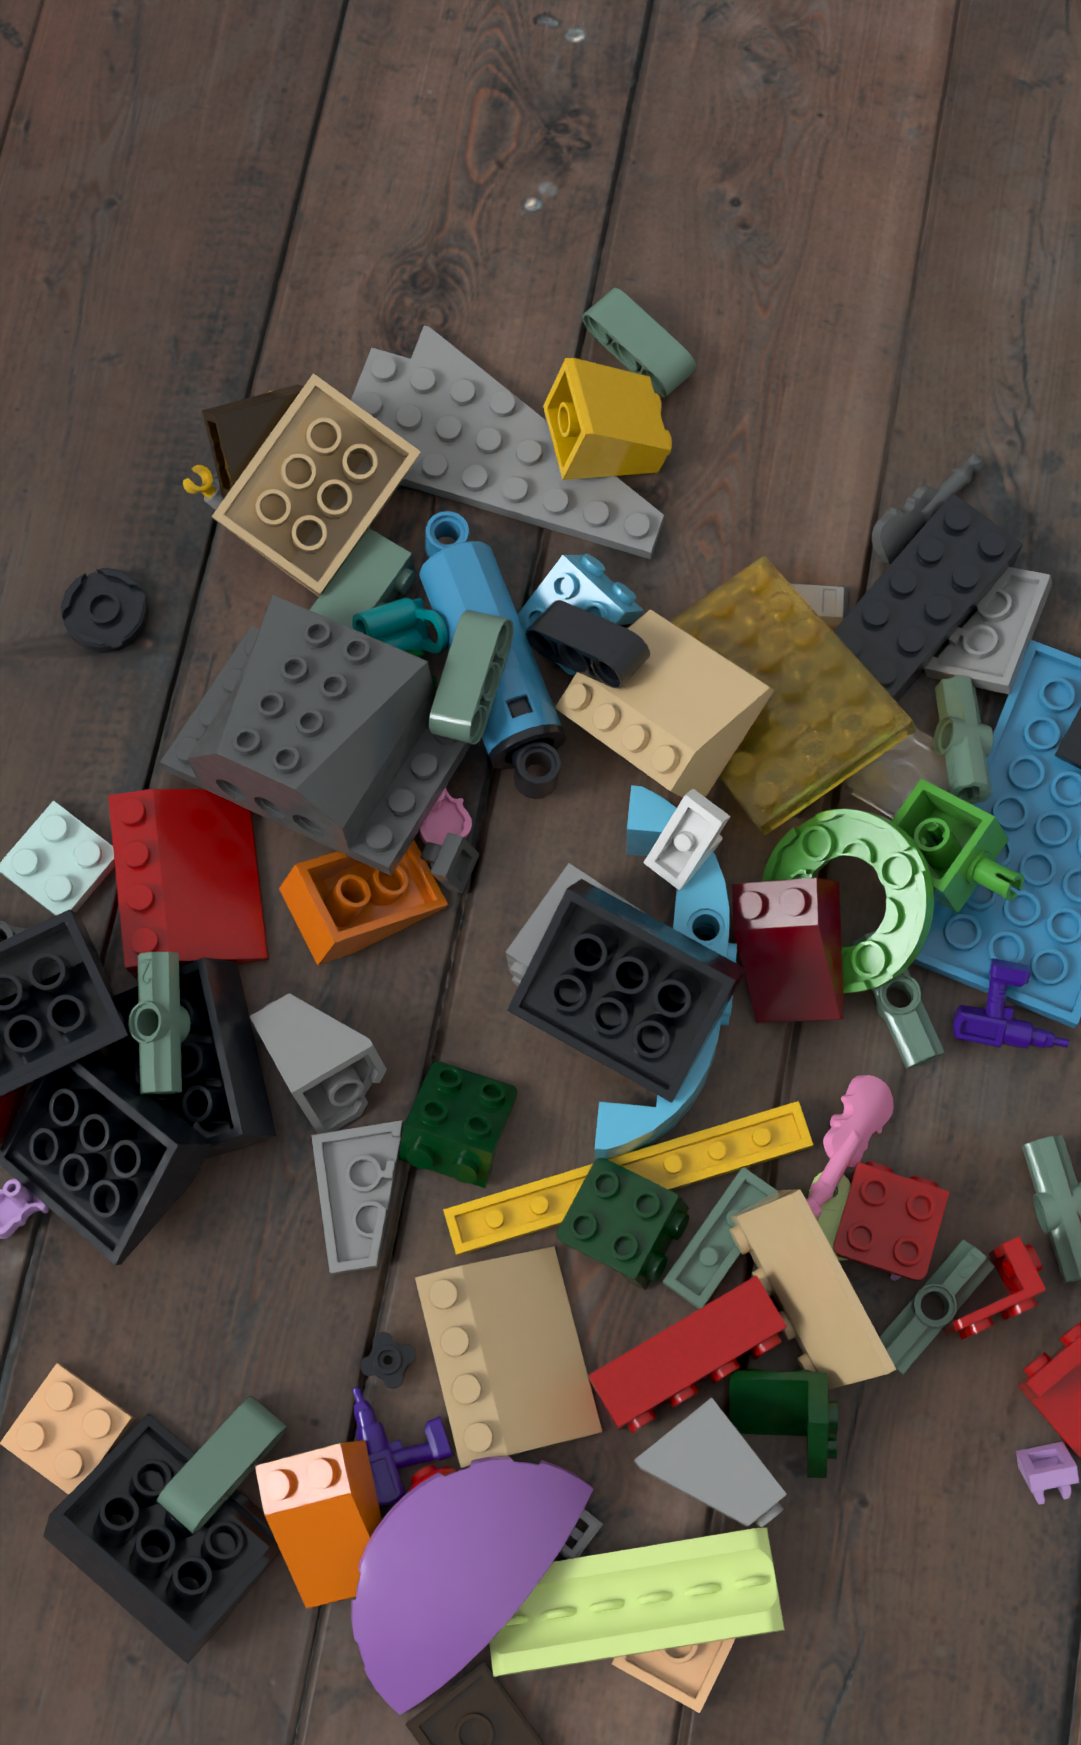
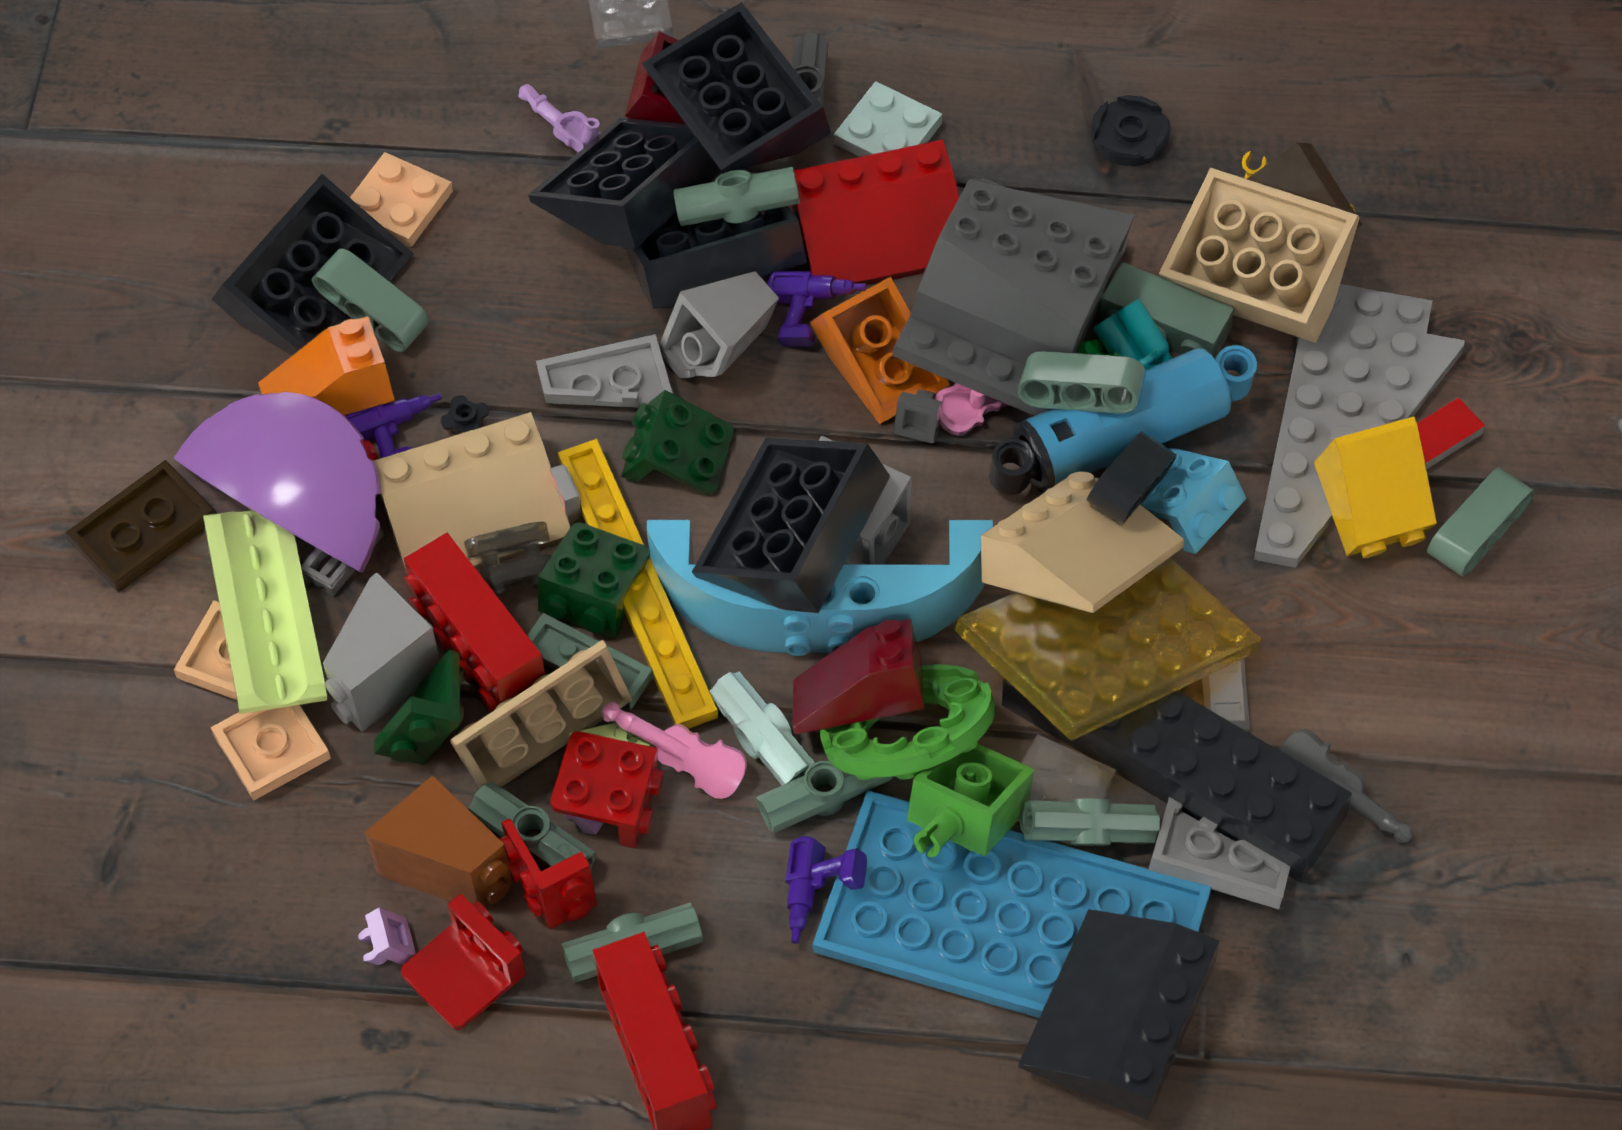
camera: 80 degrees right, 15 degrees down
(275, 968) = (801, 291): none -> dark purple piece
(509, 1246) = (567, 492): none -> light grey tile
(526, 364) = (1448, 431): none -> red tile
(591, 1313) = (521, 537): none -> clear smoke brick
(687, 839) = (938, 559): white slope -> none
(812, 1600) = (270, 747): none -> light nougat plate
(823, 1056) = (760, 728): none -> light aqua piece
(961, 1403) = (439, 848): none -> dark orange slope

